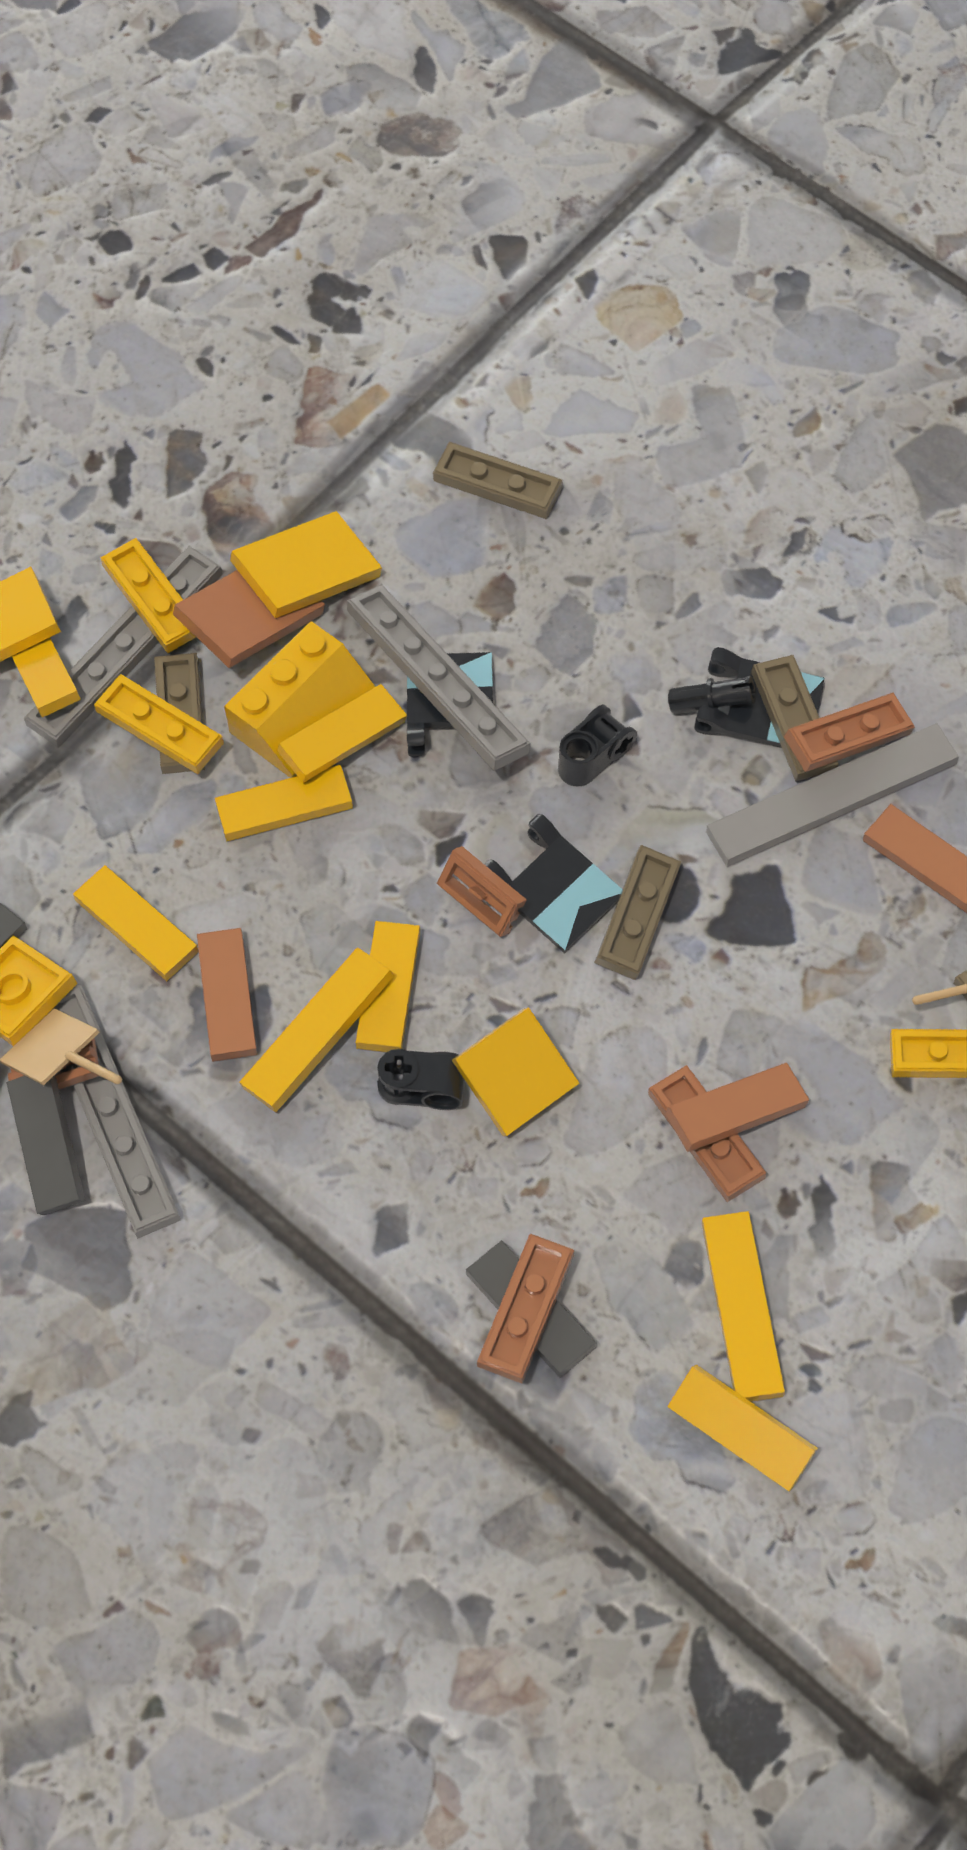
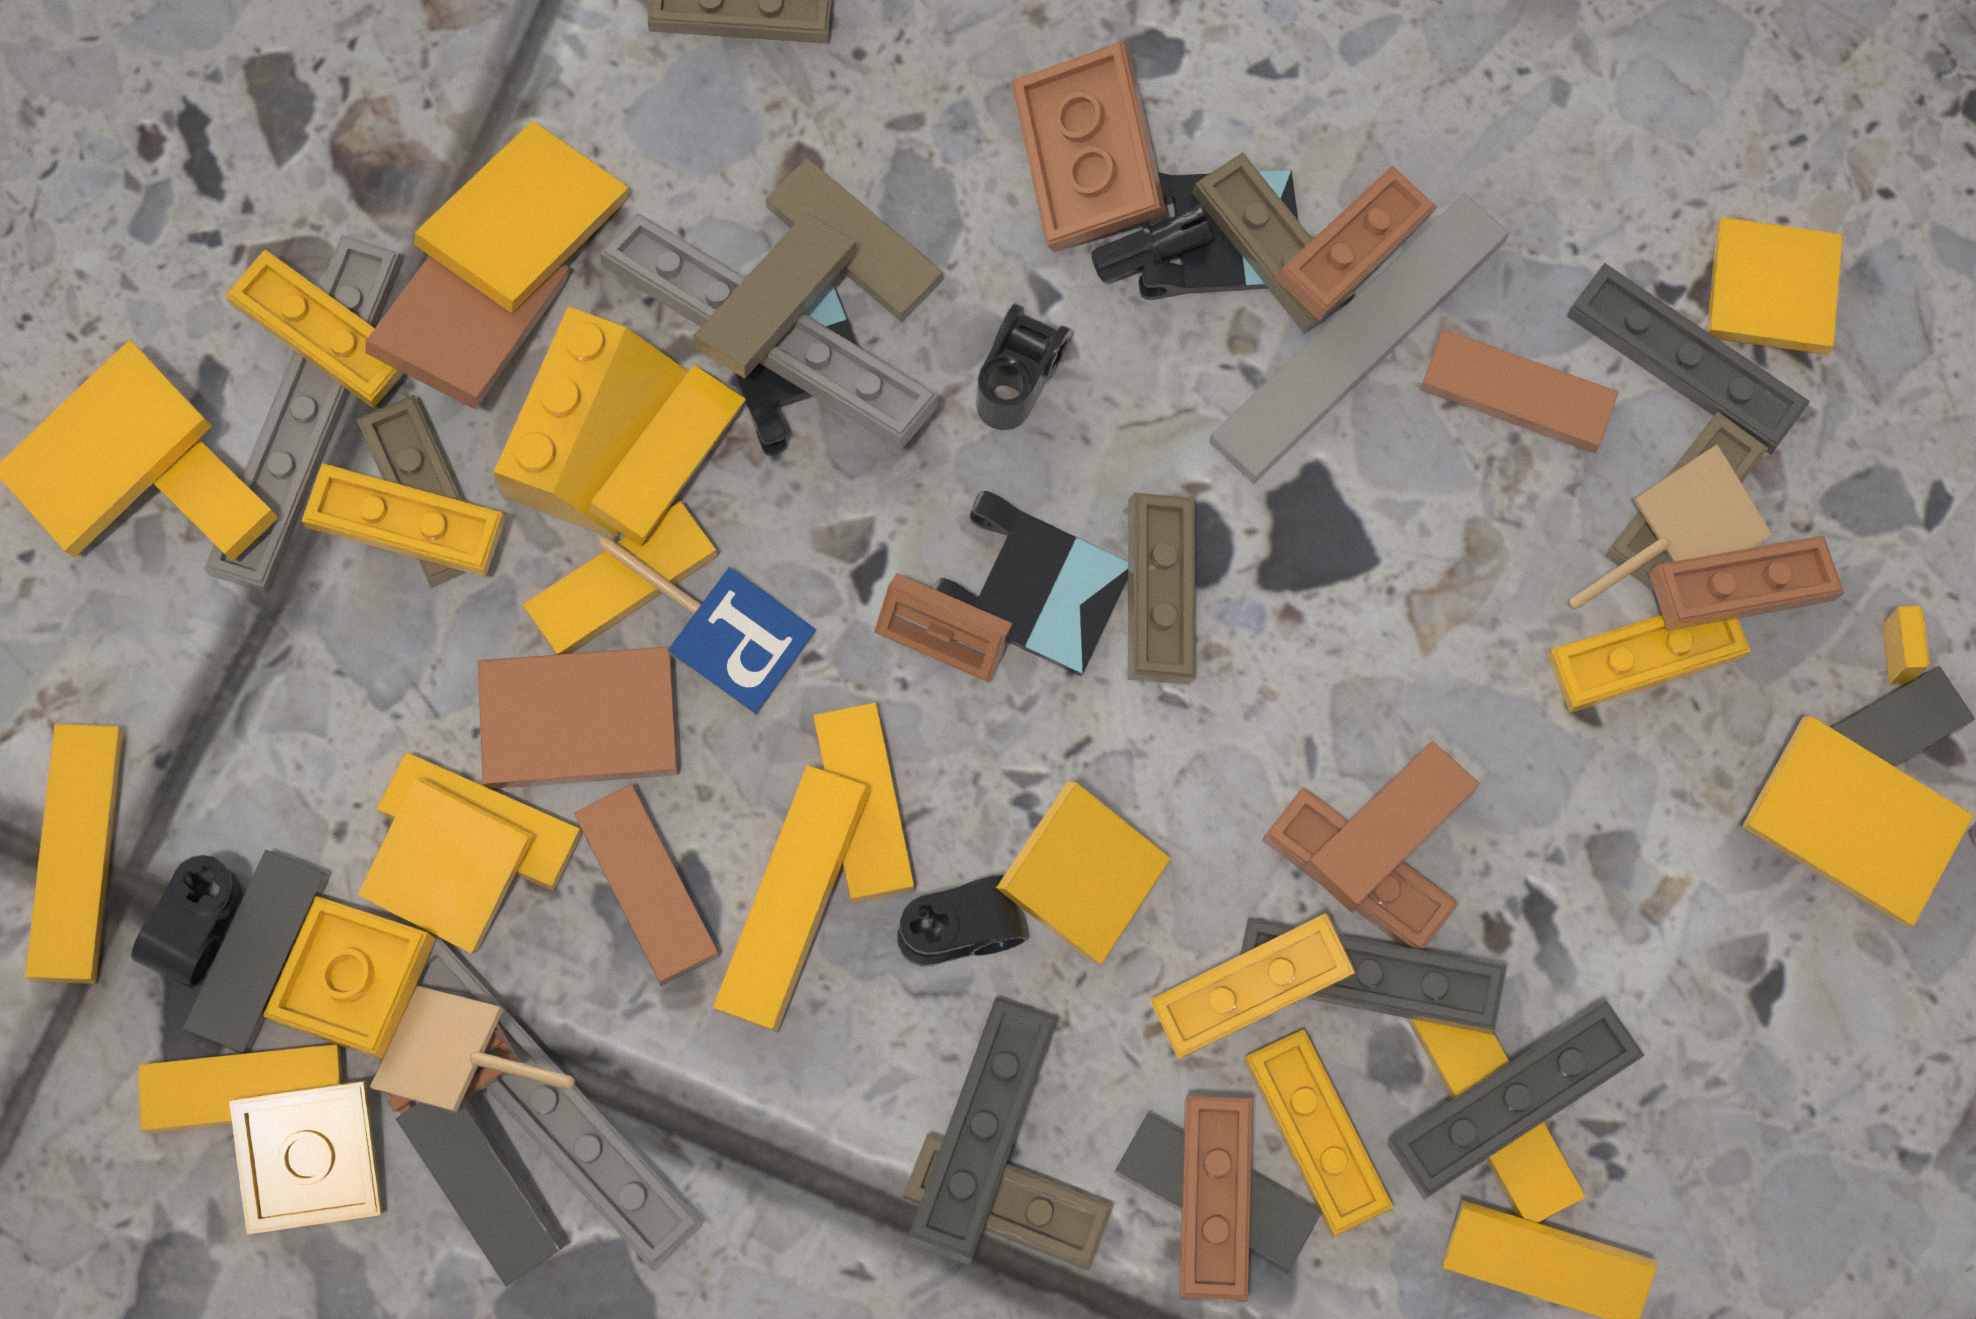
camera: 25 degrees left, 10 degrees up
(102, 940) = (445, 865): none -> yellow tile
(223, 878) = (577, 718): none -> nougat tile
(343, 860) = (735, 637): none -> blue piece
(385, 1214) = (982, 1131): none -> dark grey tile
(387, 1269) = (1030, 1210): none -> dark tan tile
(447, 653) = (775, 295): none -> dark tan tile
(516, 640) = (883, 261): none -> dark tan tile
(603, 1179) = (1253, 986): none -> yellow tile
(614, 1293) = (1318, 1133): none -> yellow tile
(687, 1199) = (1407, 981): none -> dark grey tile
(691, 624) = (1088, 147): none -> nougat tile
(757, 1310) = (1515, 1100): none -> dark grey tile

